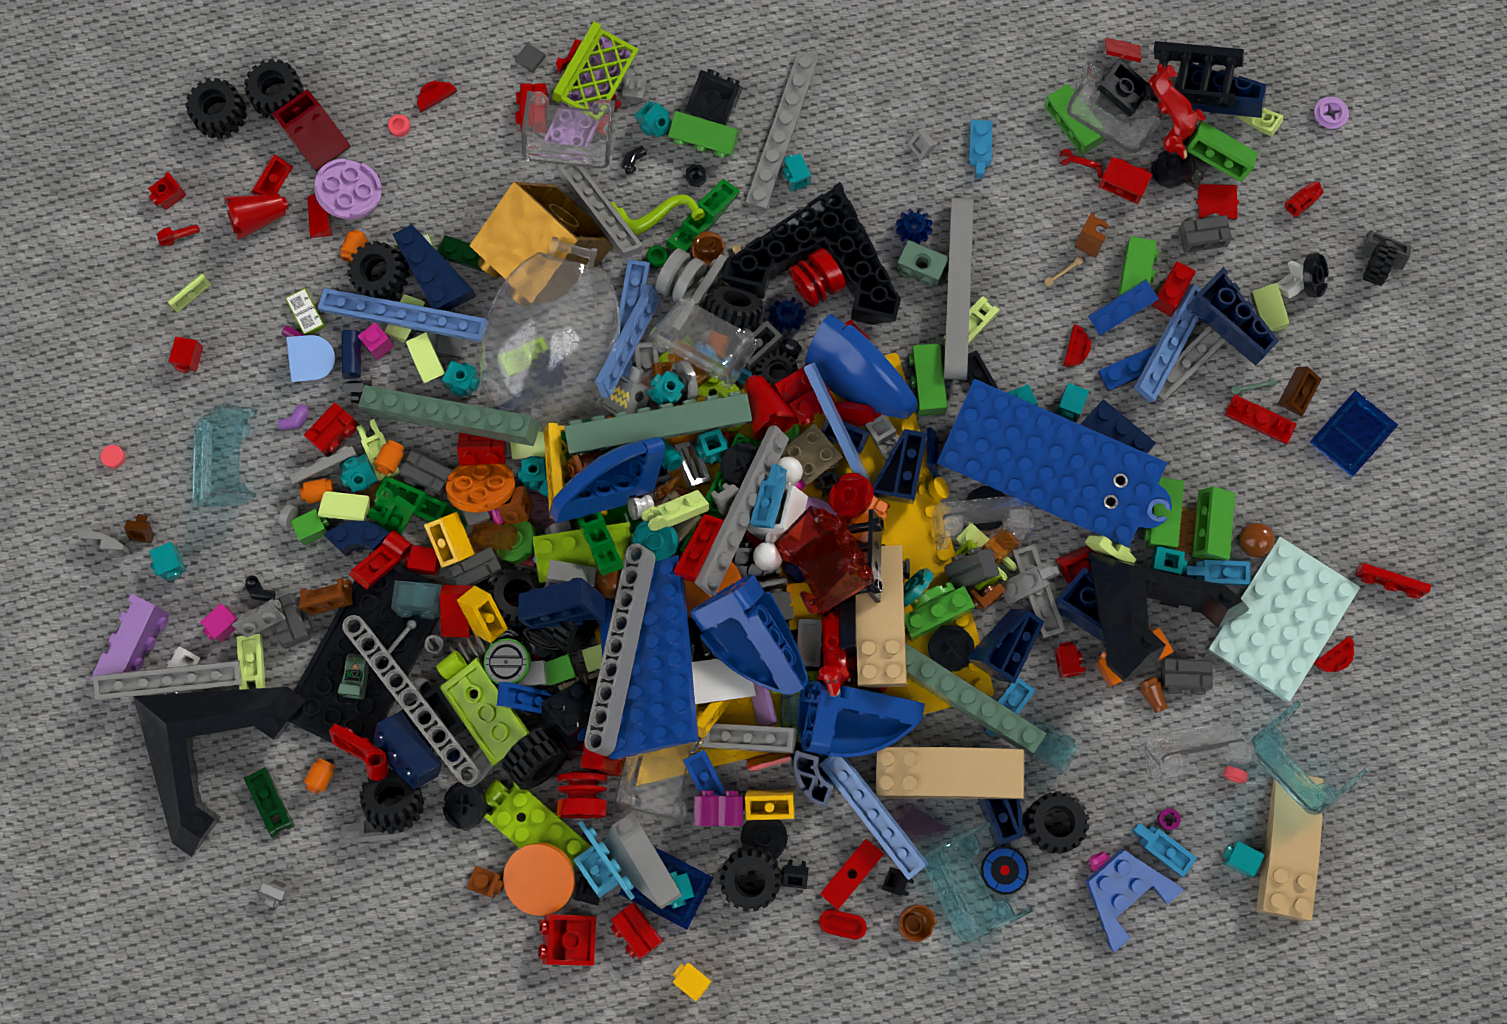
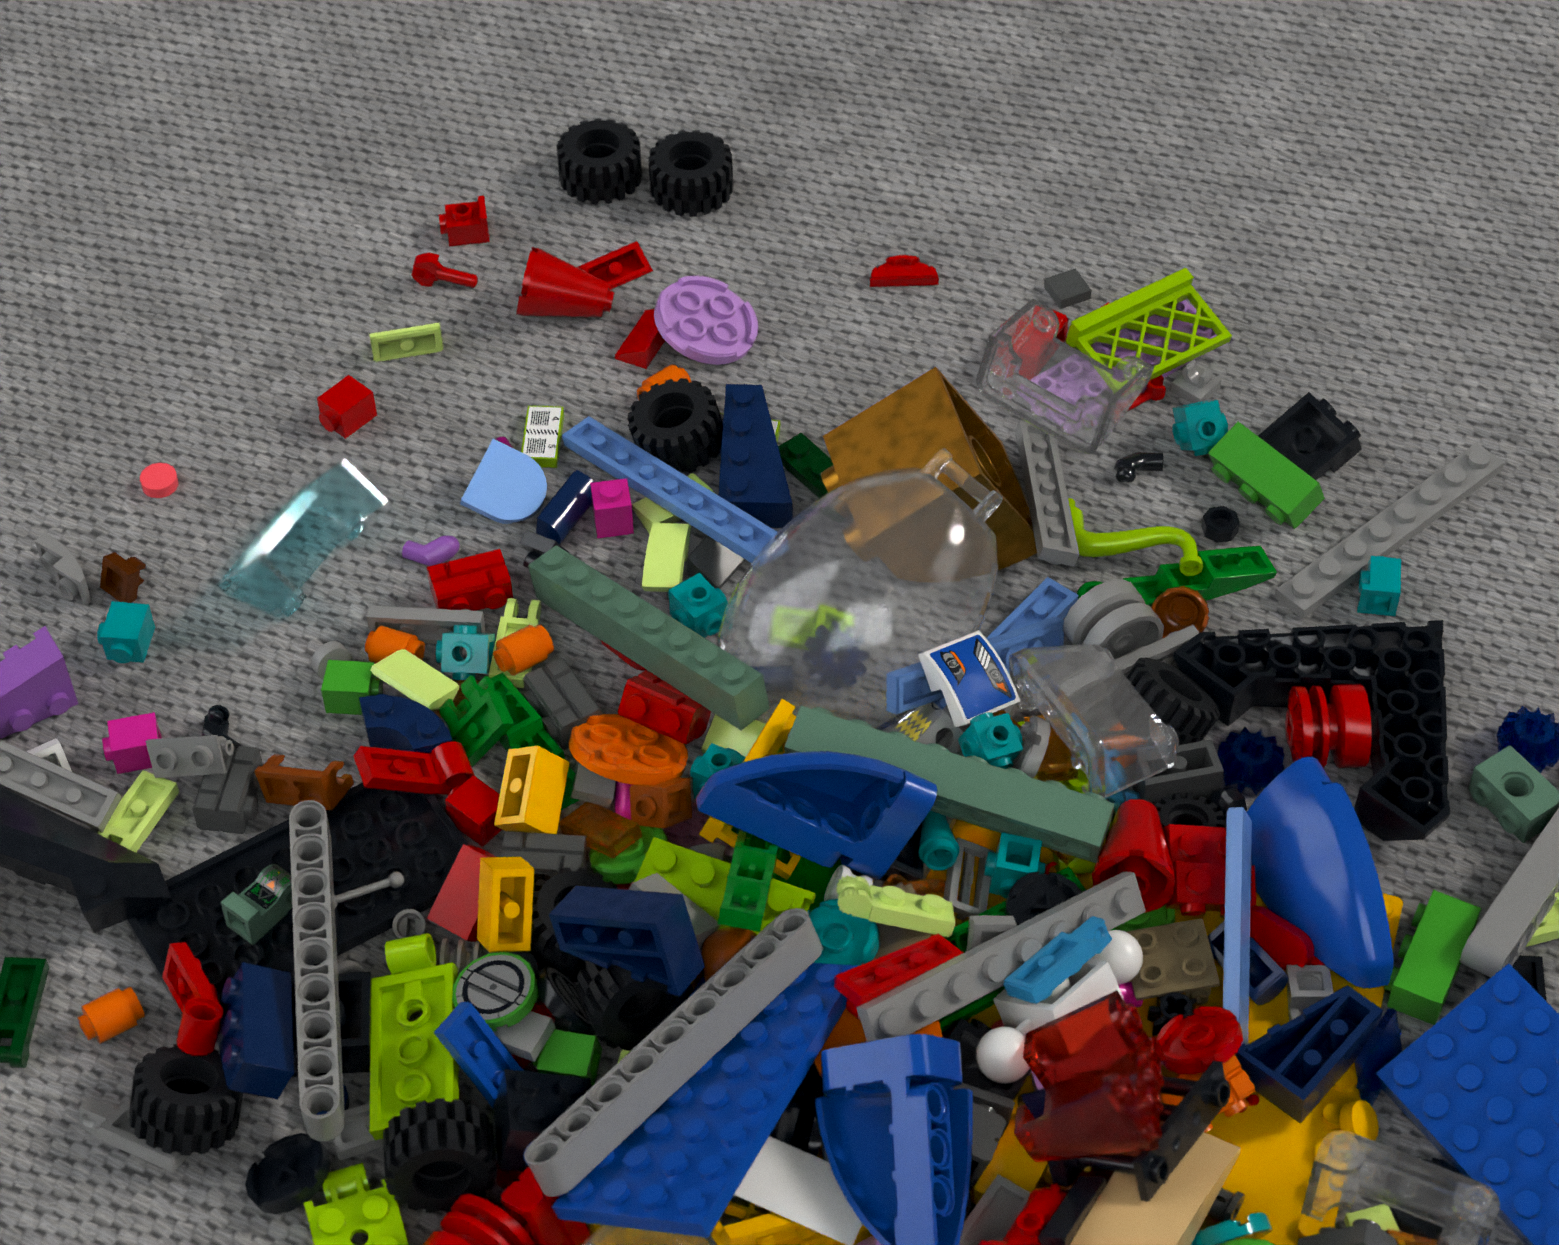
camera: 30 degrees right, 25 degrees down
(311, 130) = (706, 232): dark red slope -> none
(399, 125) = (829, 286): coral tile -> none
(416, 599) = (424, 843): clear light blue brick -> none
(633, 356) = (969, 677): none -> slope

